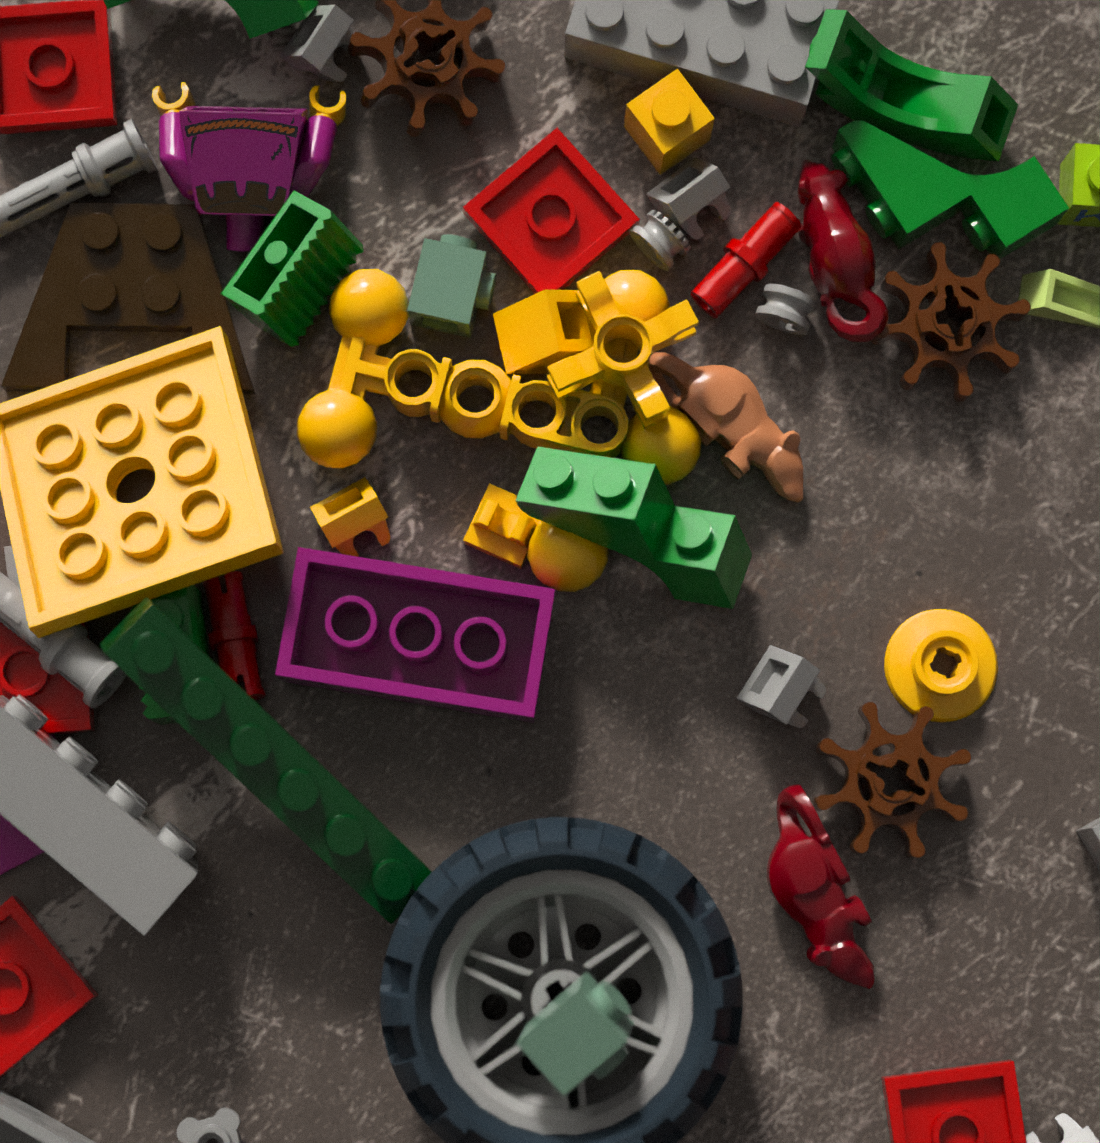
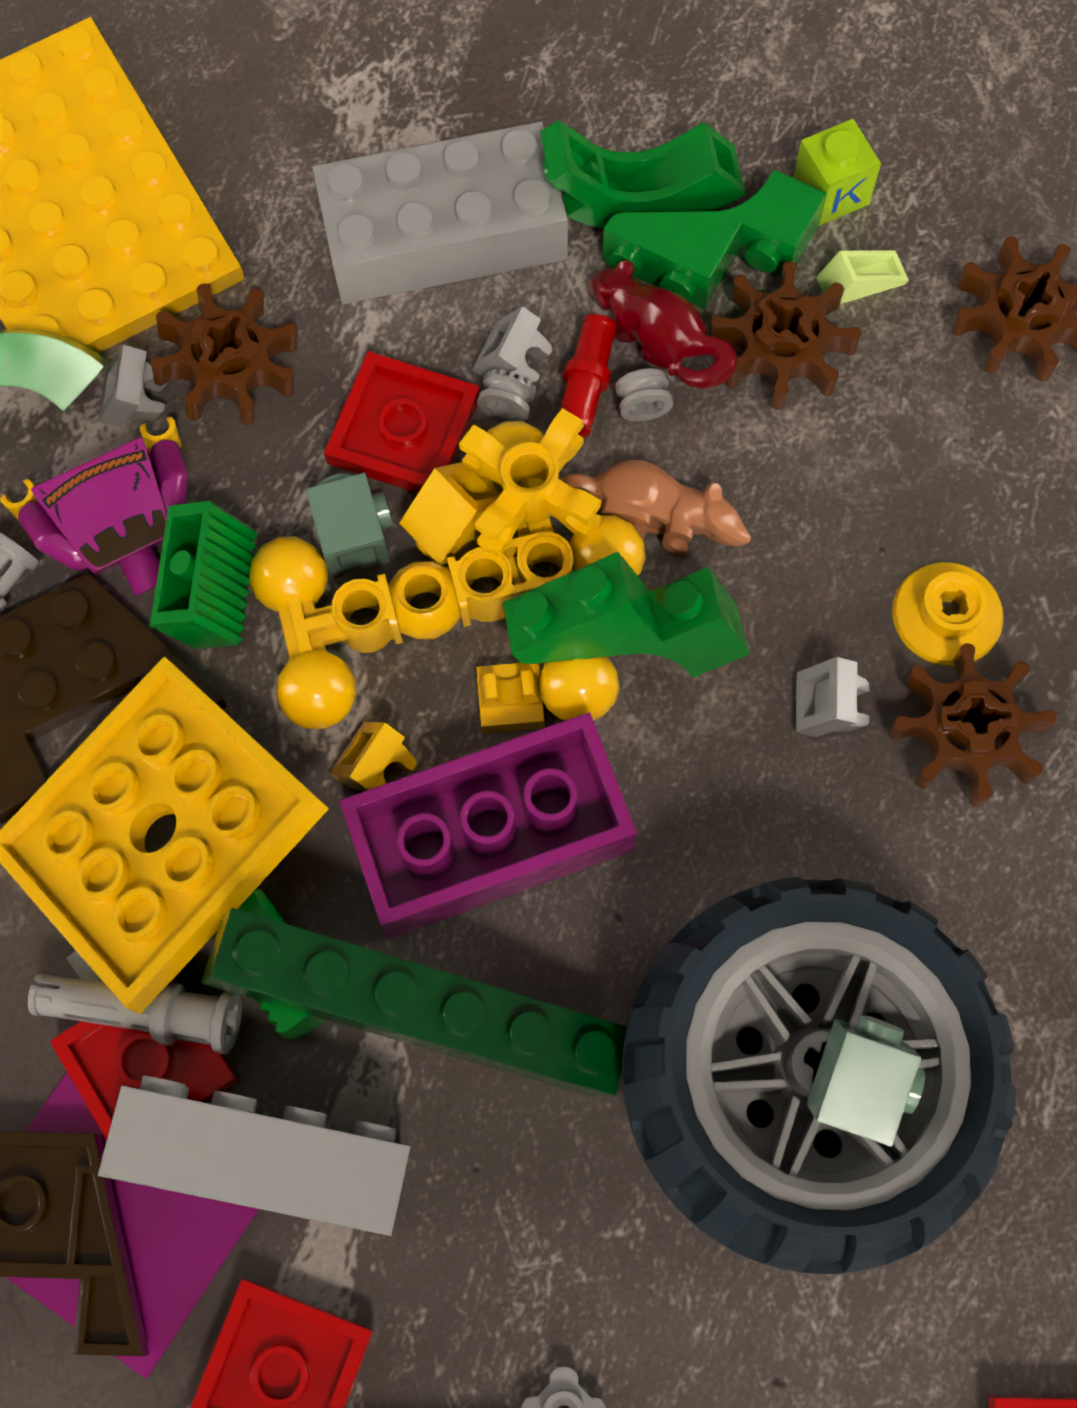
camera: 25 degrees left, 10 degrees down
(232, 632) = (310, 906): red pin -> none
(668, 121) = (458, 299): yellow brick -> none
(807, 885) = (959, 853): dark red animal -> none

